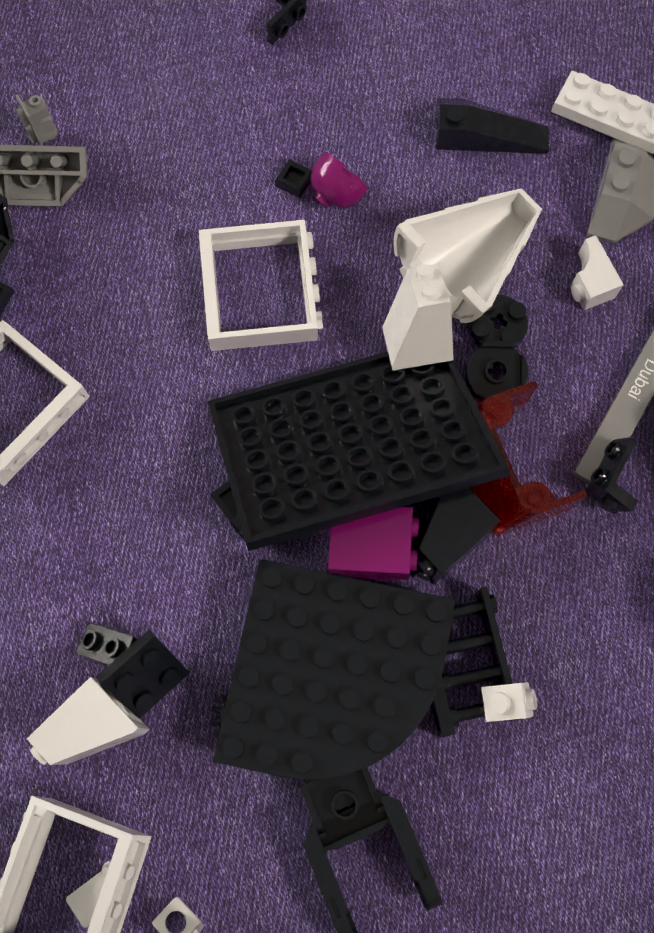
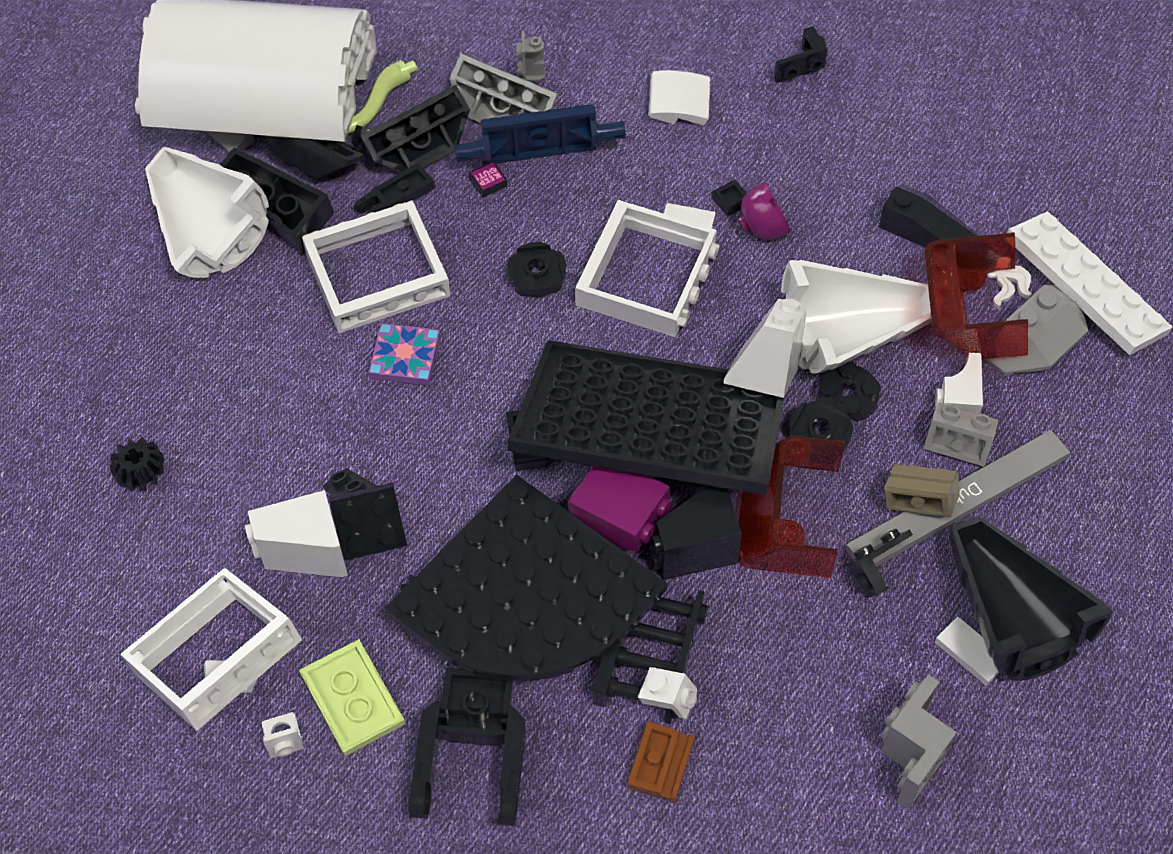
camera: 30 degrees right, 15 degrees down
(61, 260) = (488, 179): none -> tile
(80, 478) = (404, 354): none -> tile
(88, 196) = (539, 135): none -> dark blue plate
(157, 350) = (536, 284): none -> black plate
(194, 97) = (679, 96): none -> white slope
(222, 852) = (352, 697): none -> yellowish green tile
(266, 213) = (690, 214): none -> white sticker
(531, 163) = (960, 267): none -> clear red windscreen
(531, 765) = (661, 761): none -> dark orange plate
(566, 149) = (1003, 277): none -> white piece
(616, 319) = (961, 434): none -> light grey bracket
(616, 390) = (922, 490): none -> dark tan brick

